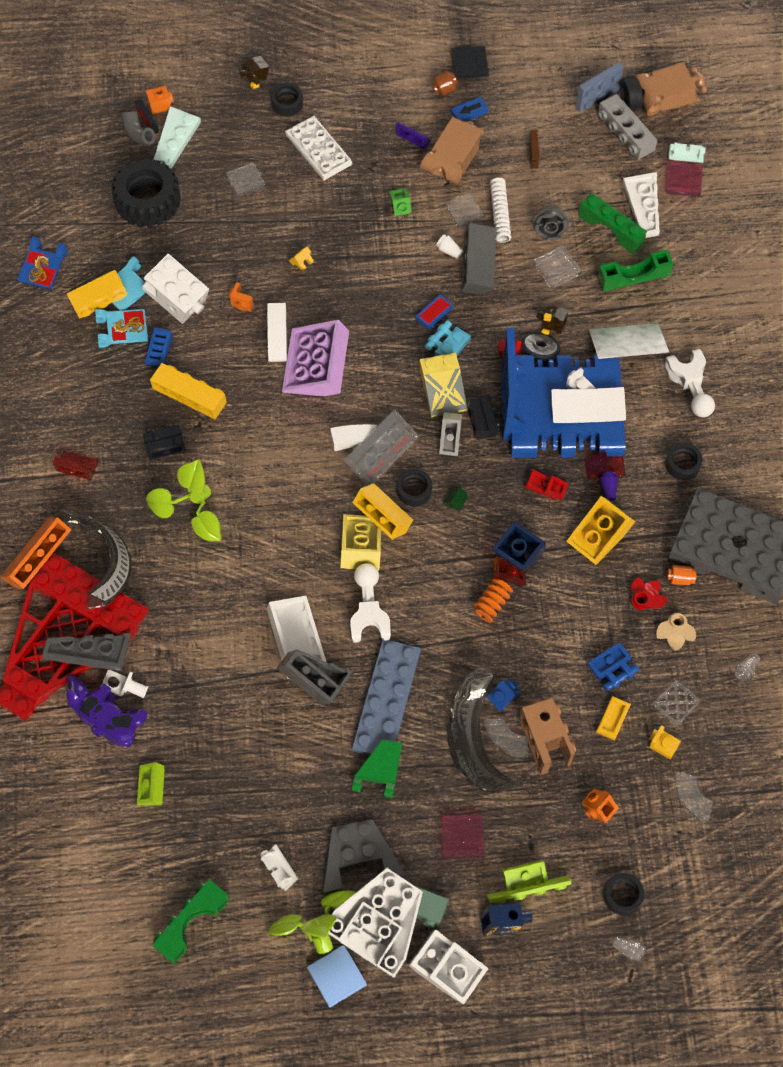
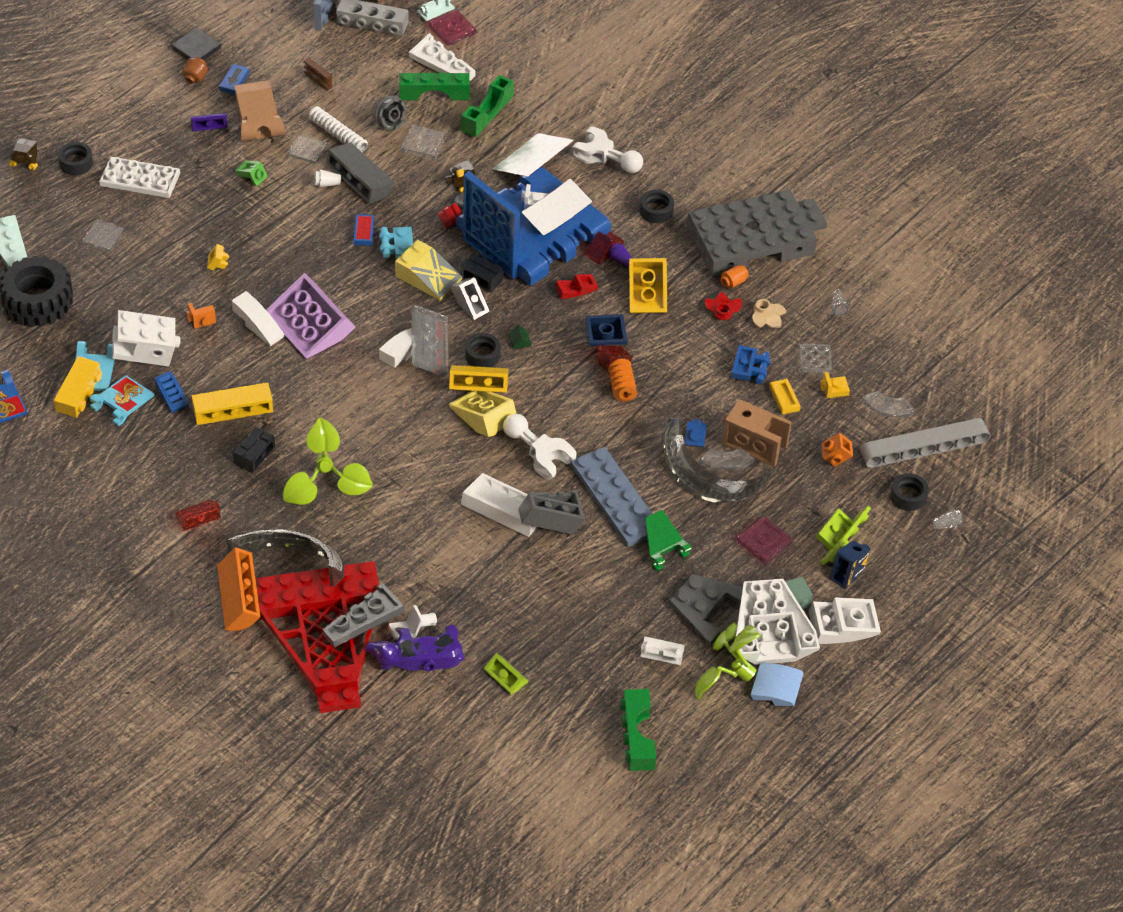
camera: 45 degrees left, 15 degrees down
(685, 859) = (924, 442): none -> light grey beam

